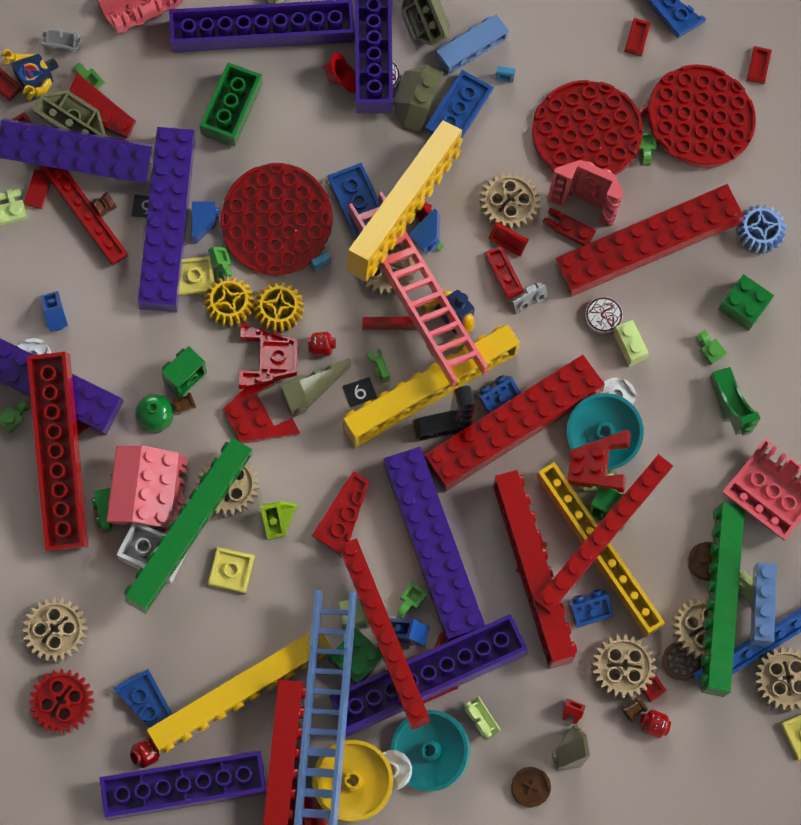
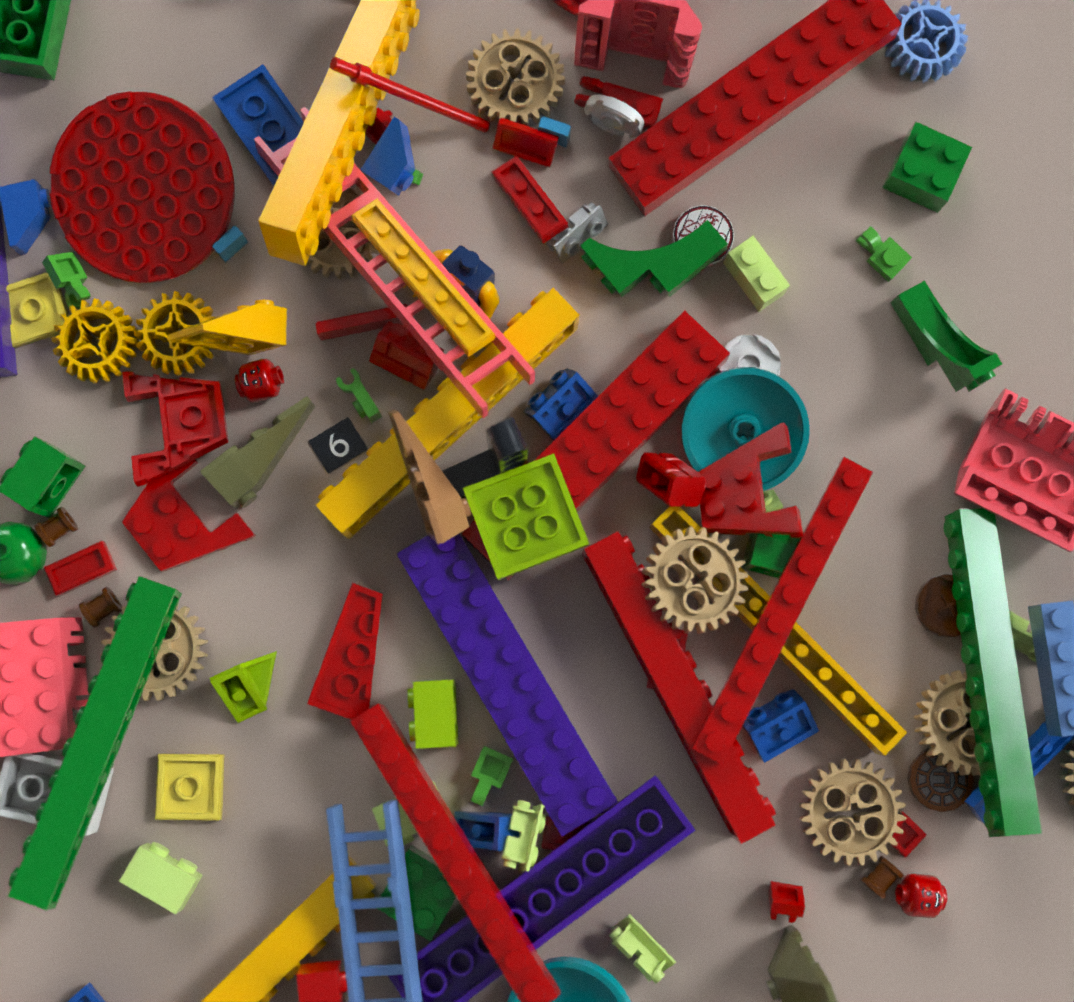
camera: 10 degrees left, 10 degrees up
(192, 431) = (80, 568): none -> red tile
(201, 454) = (100, 607): none -> reddish brown bush
(205, 617) = (161, 877): none -> yellowish green brick
(318, 312) = (242, 331): none -> yellow slope
(387, 555) = (434, 714): none -> lime brick
(411, 346) = (403, 356): none -> red brick
(415, 428) = (437, 500): none -> medium nougat wedge
(423, 182) = (364, 76): none -> red bar
(423, 641) = (523, 849): none -> yellowish green hinge
(433, 301) = (423, 277): none -> yellow tile
(465, 451) = (526, 516): none -> lime plate
(529, 235) = (556, 128): none -> dark azure tile
(540, 512) = (672, 596): none -> tan gear
(554, 449) = (671, 479): none -> red brick
(564, 234) = (614, 116): none -> white tile
(579, 327) = (669, 265): none -> green arch

